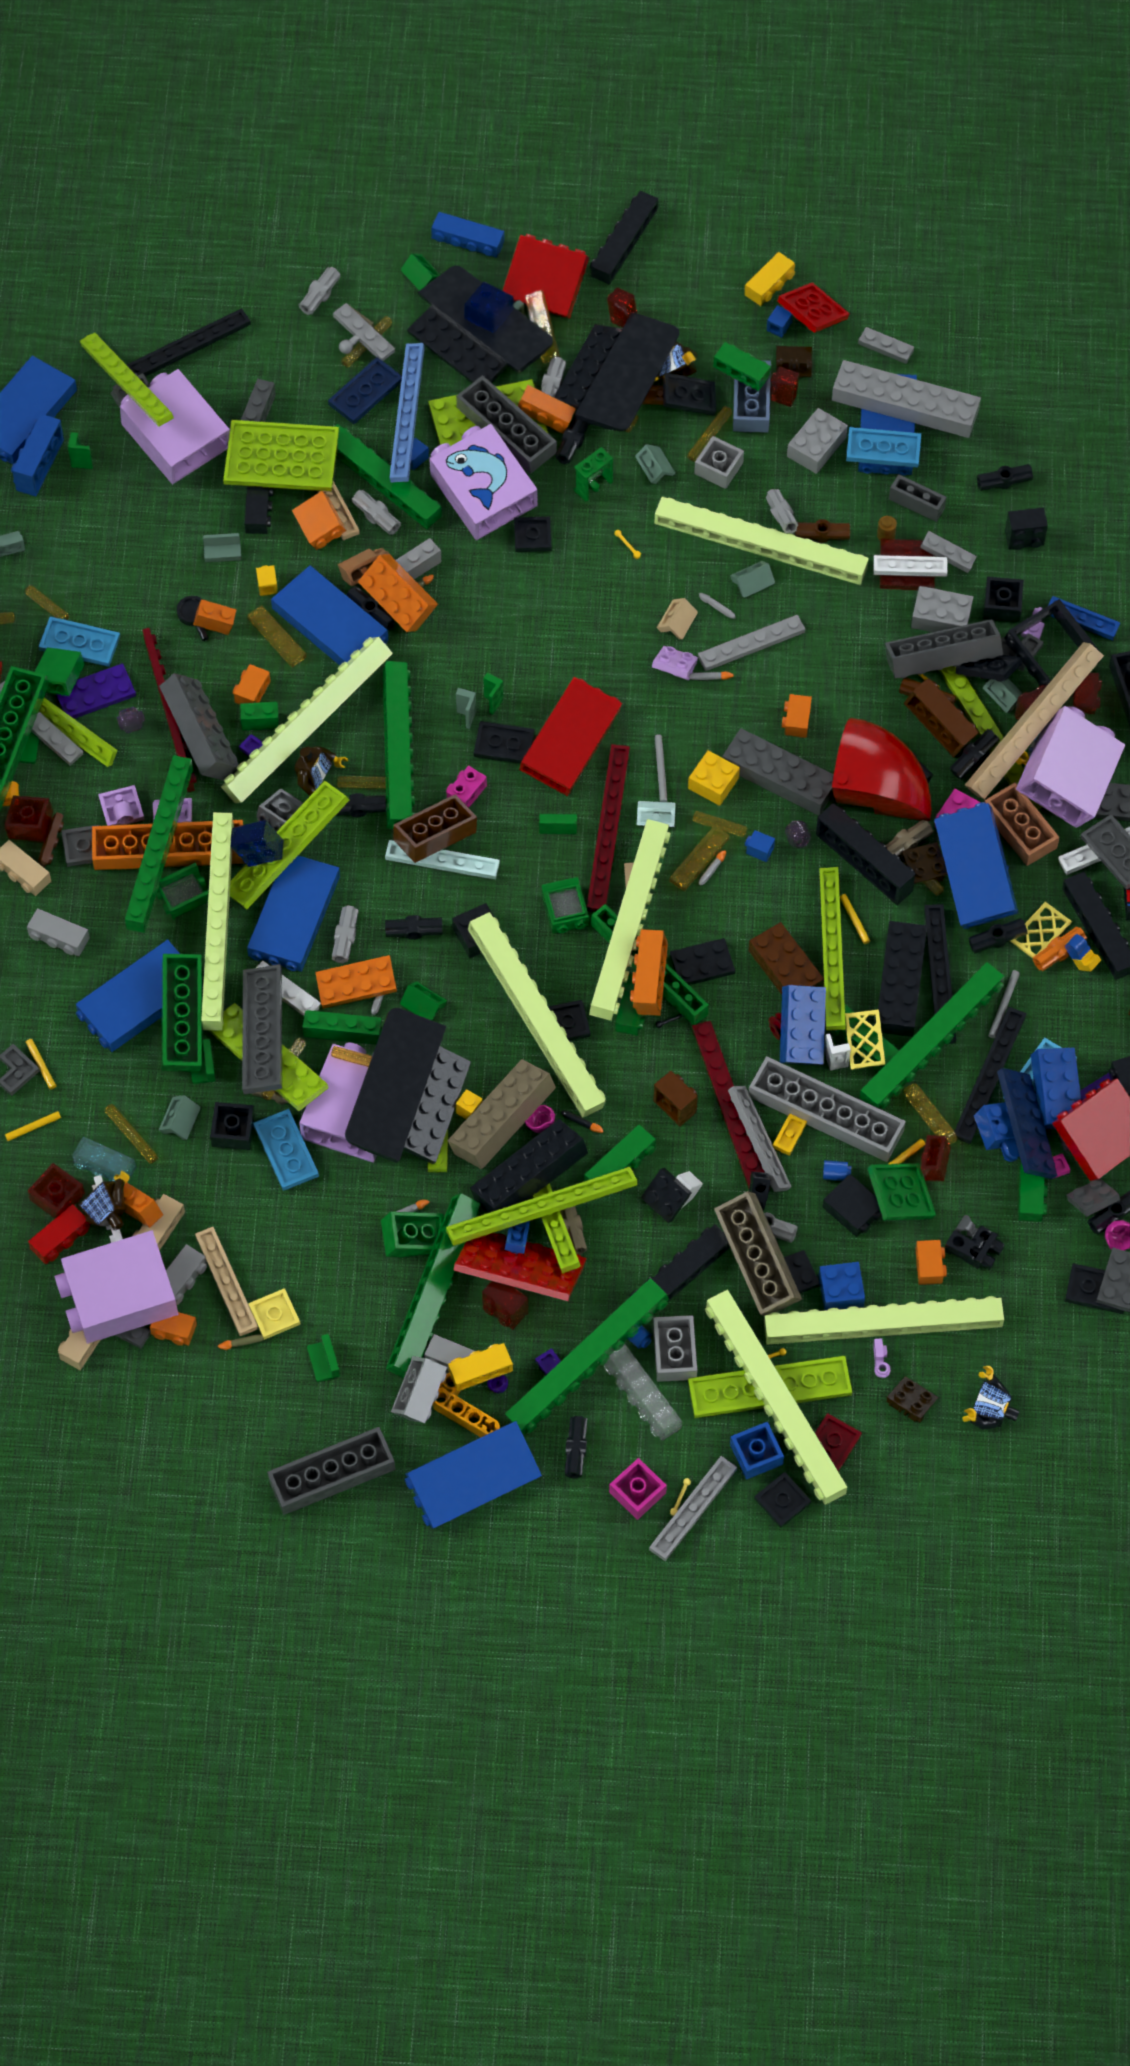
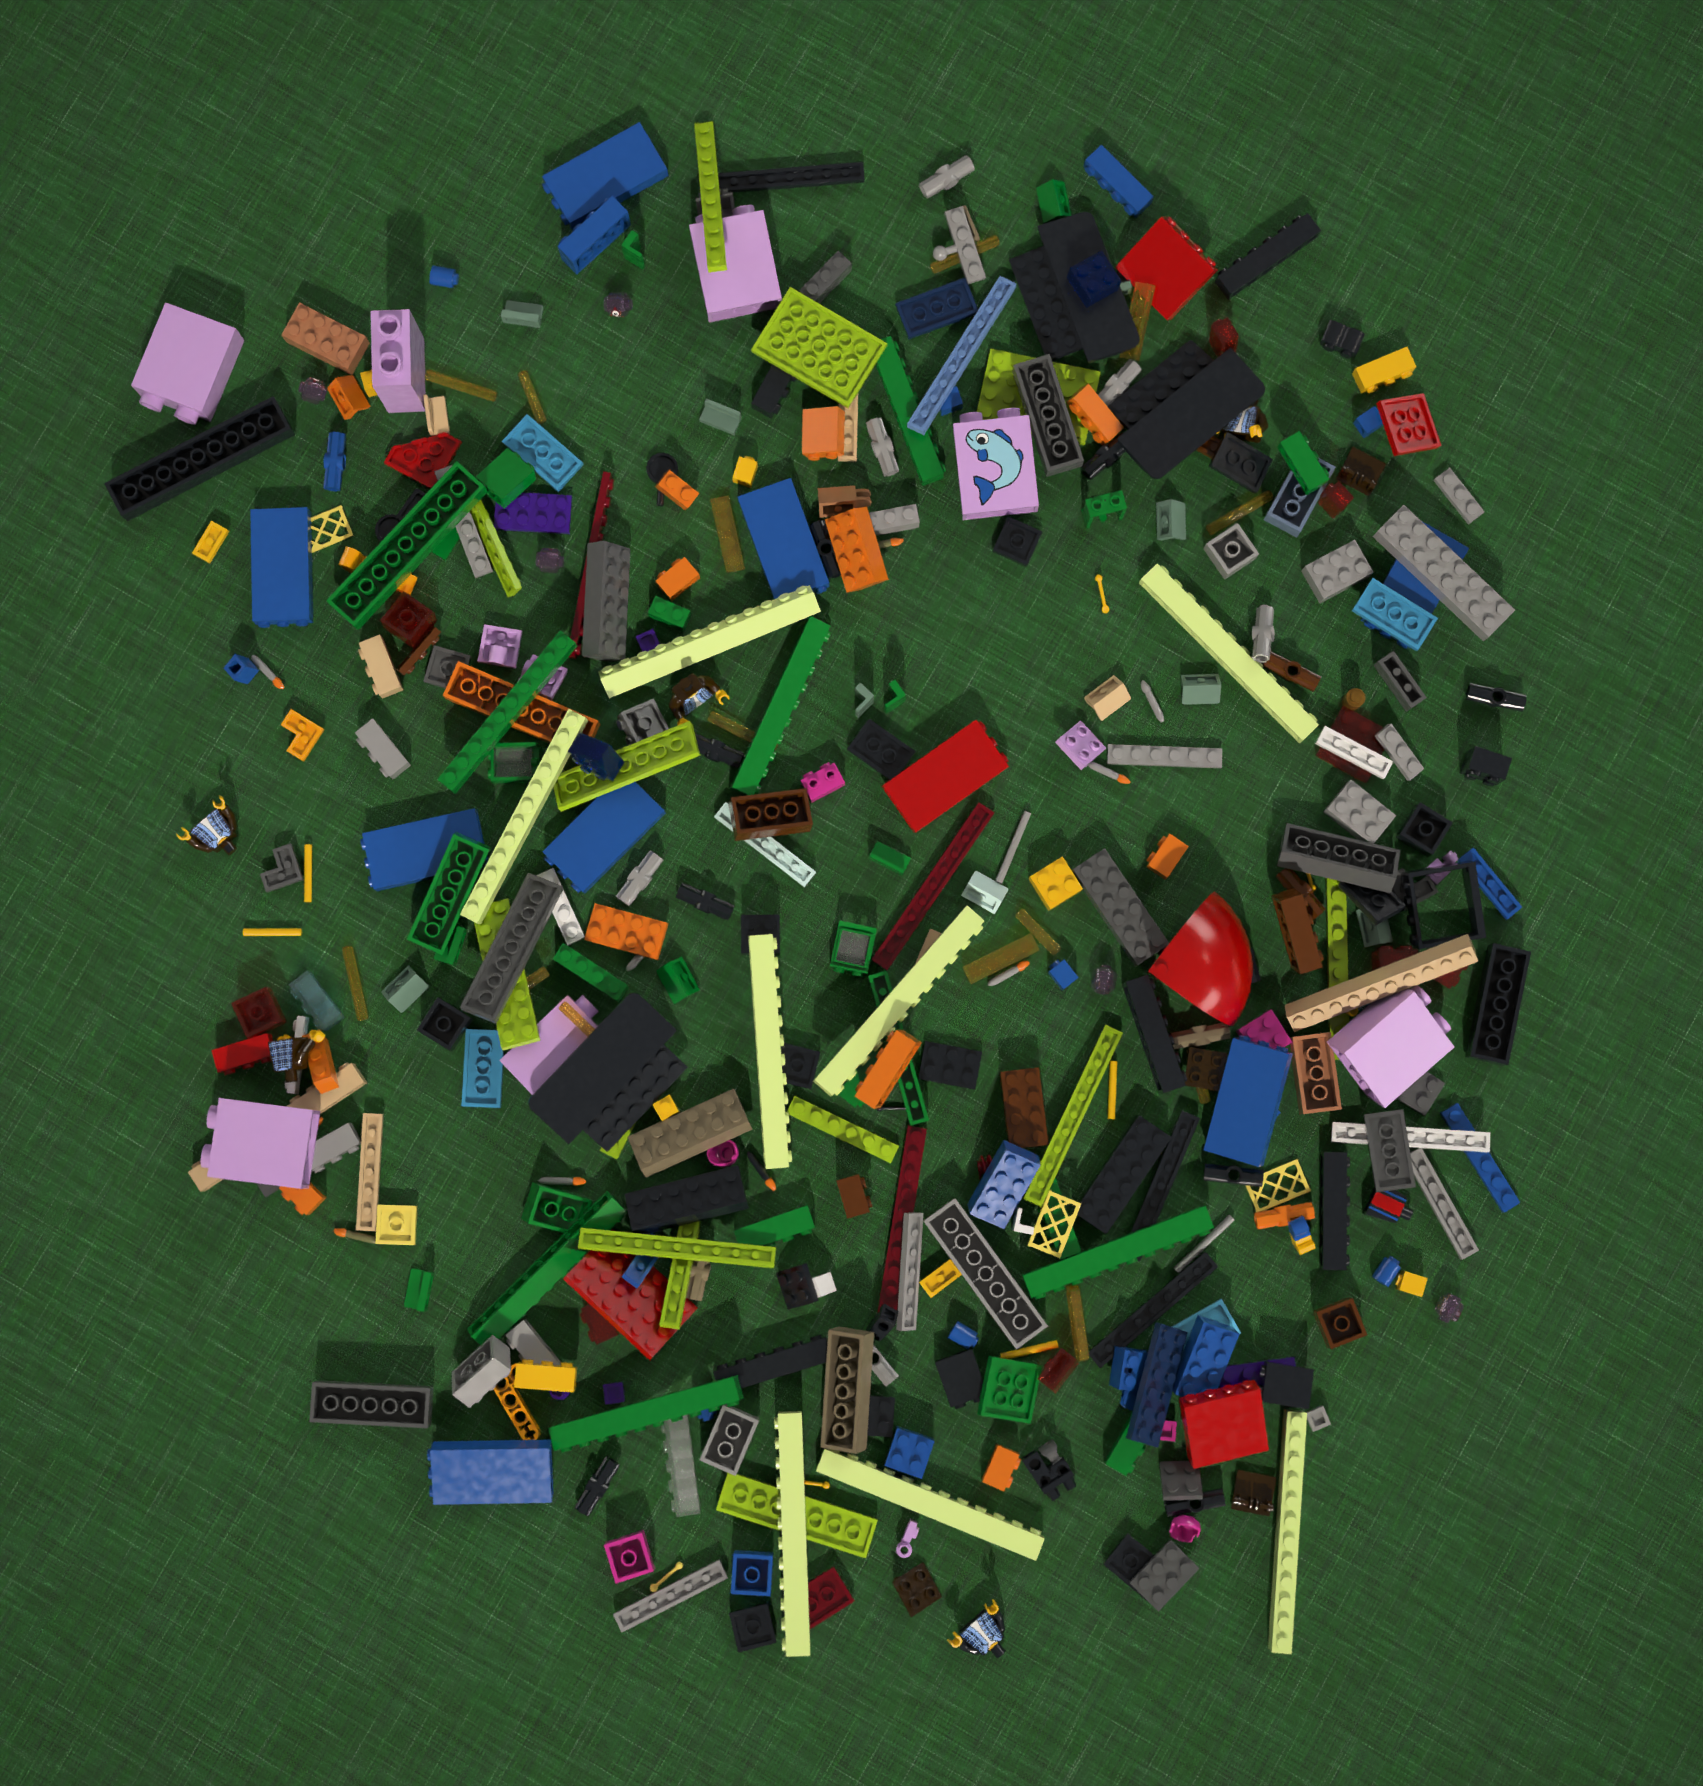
camera: 25 degrees right, 20 degrees up
(85, 500) = (617, 304): none -> clear purple head
(637, 1055) = (842, 1129): none -> lime plate
(721, 271) = (1342, 339): none -> black brick
(974, 754) = (1310, 980): black piece -> none

